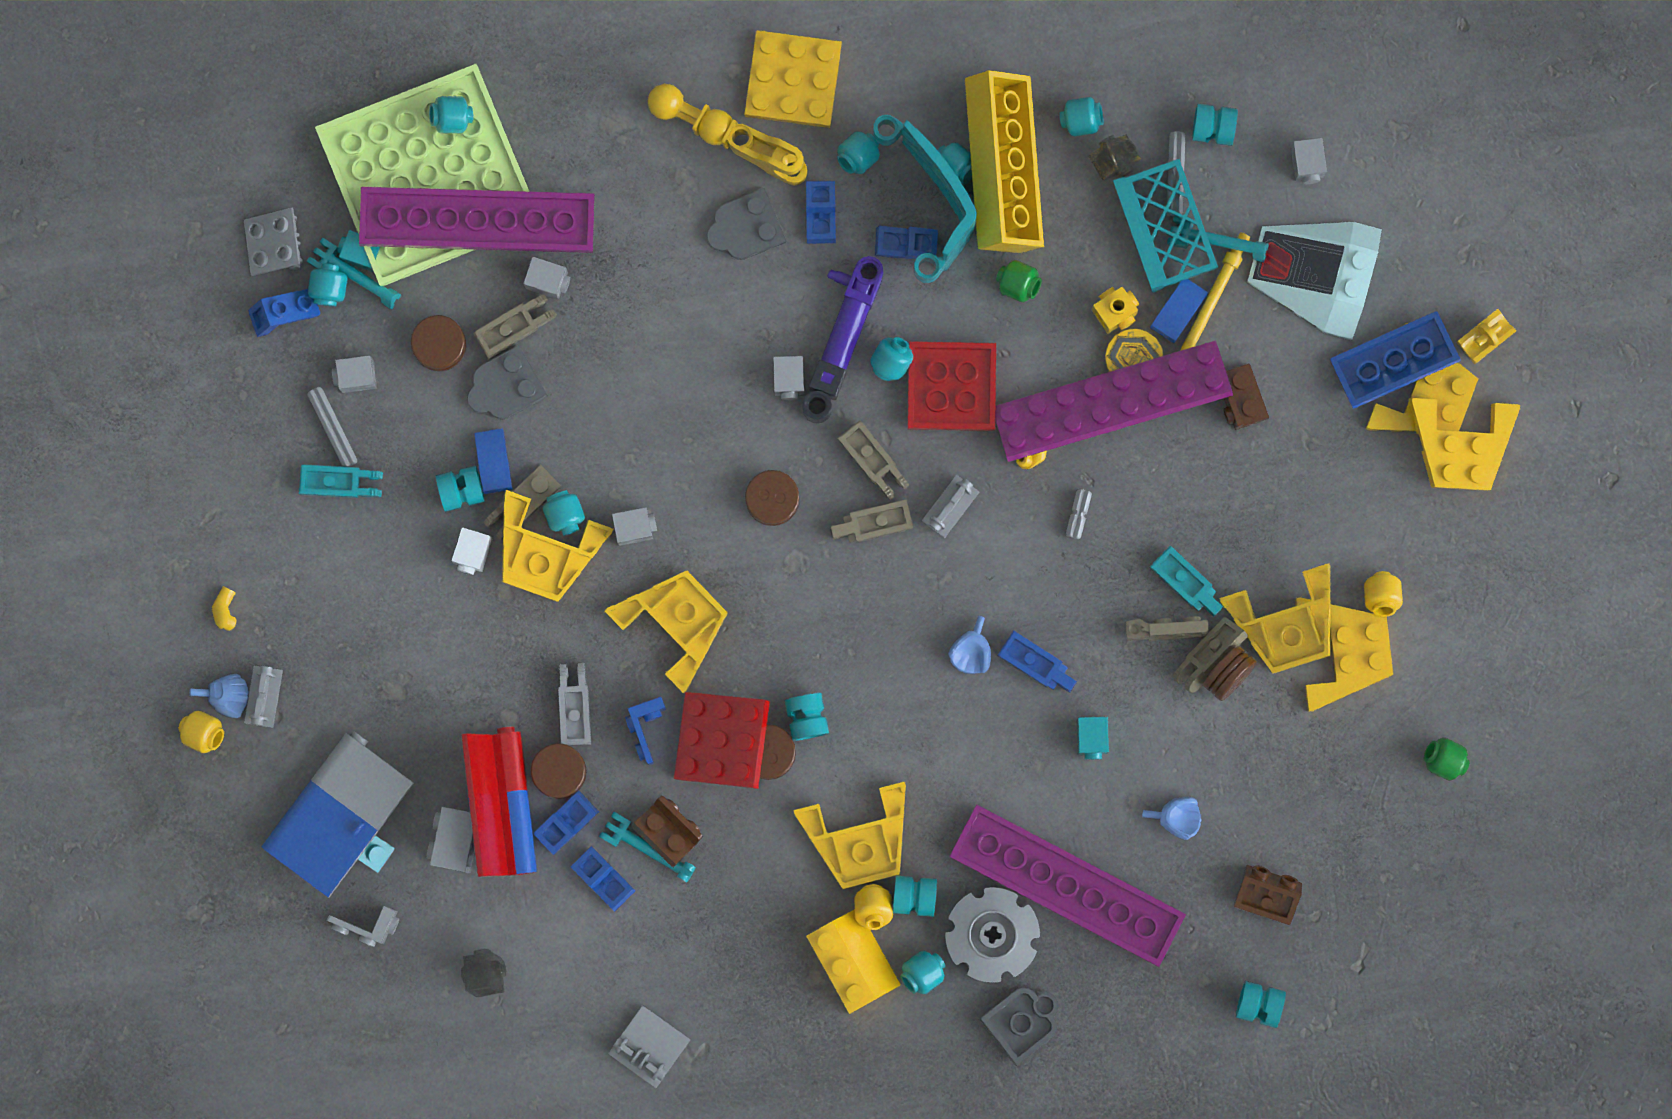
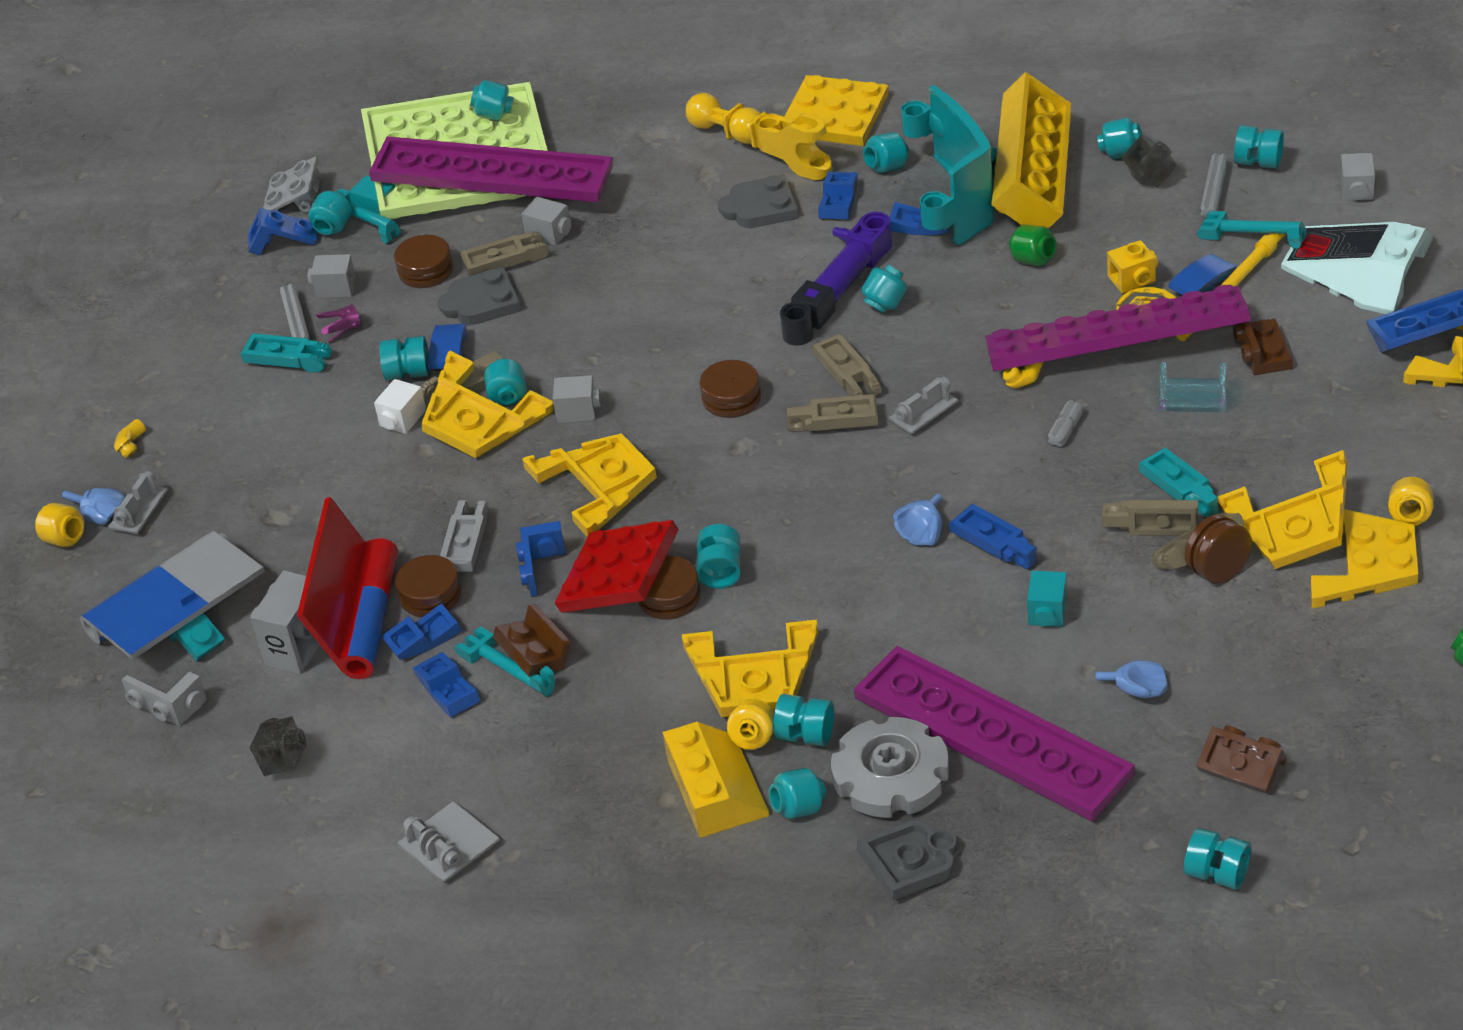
camera: 15 degrees right, 40 degrees down
(382, 428) = (349, 320): none -> flat silver piece
(788, 377) = (770, 297): light grey brick -> none
(952, 386) = (945, 318): red plate -> none
(1141, 233) = (1176, 234): teal fence -> none
(1186, 464) = (1192, 393): none -> clear light blue panel

